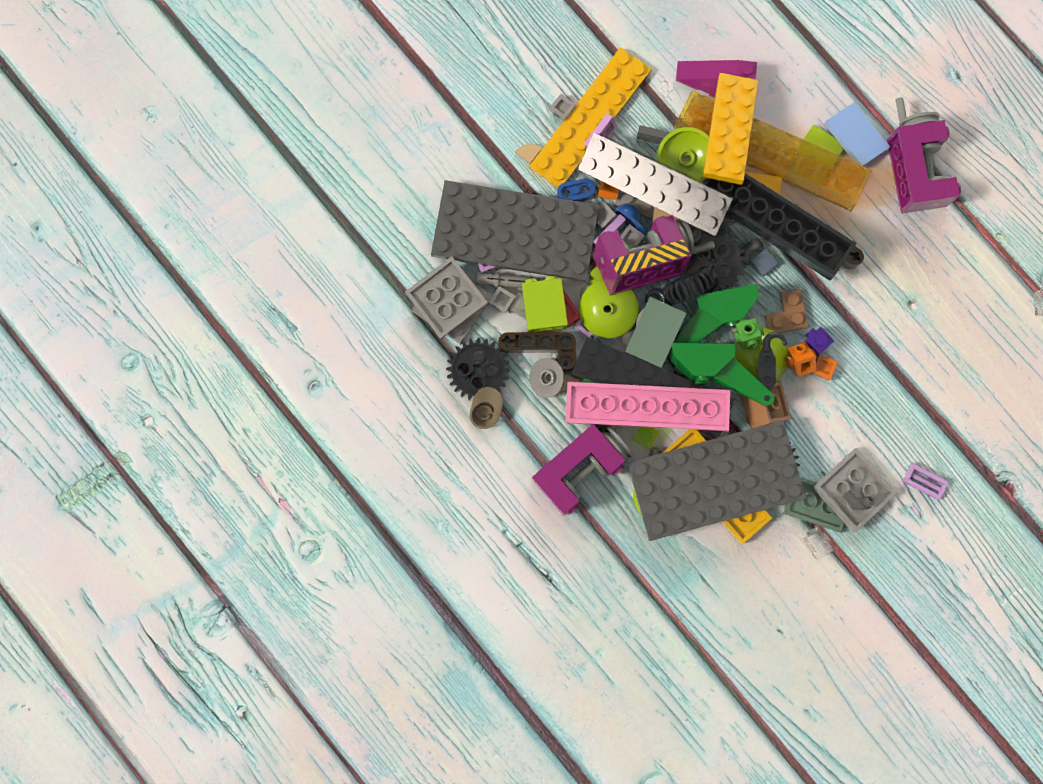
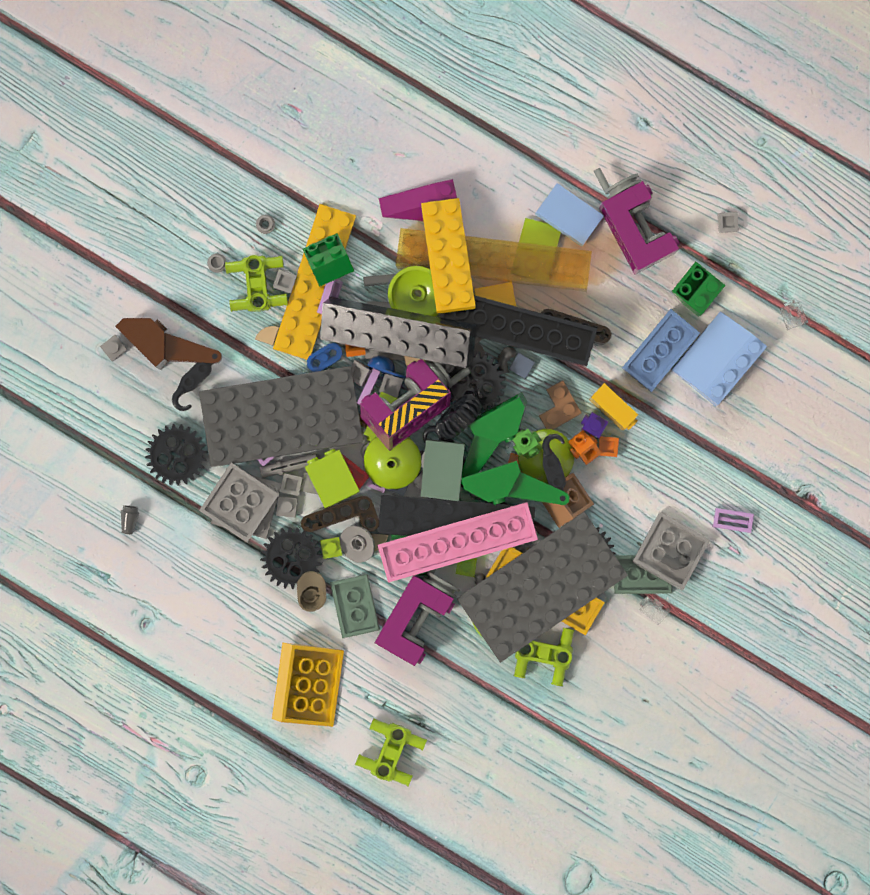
camera: 25 degrees left, 5 degrees up
(334, 279) = (128, 519): none -> dark grey cone
(378, 116) = (113, 348): none -> light grey plate
(388, 222) = (160, 447): none -> black gear
(425, 128) = (161, 348): none -> reddish brown slope
(450, 498) = (307, 685): none -> yellow slope
(490, 320) = (287, 507): none -> light grey plate
(504, 69) = (216, 263): none -> light grey plate
(509, 594) = (390, 752): none -> lime piece
(519, 374) = (331, 548): none -> lime plate
(523, 438) = (354, 606): none -> sand green tile
(534, 100) = (256, 283): none -> lime piece
(562, 44) = (261, 219): none -> light grey plate
(612, 98) = (328, 259): none -> green slope
(697, 550) = (547, 654): none -> lime piece
(844, 329) = (614, 407): none -> yellow brick
(905, 292) = (660, 350): none -> medium blue plate
(961, 245) = (697, 289): none -> green slope
(961, 319) = (719, 358): none -> light blue slope
(1009, 192) = (728, 222): none -> light grey plate

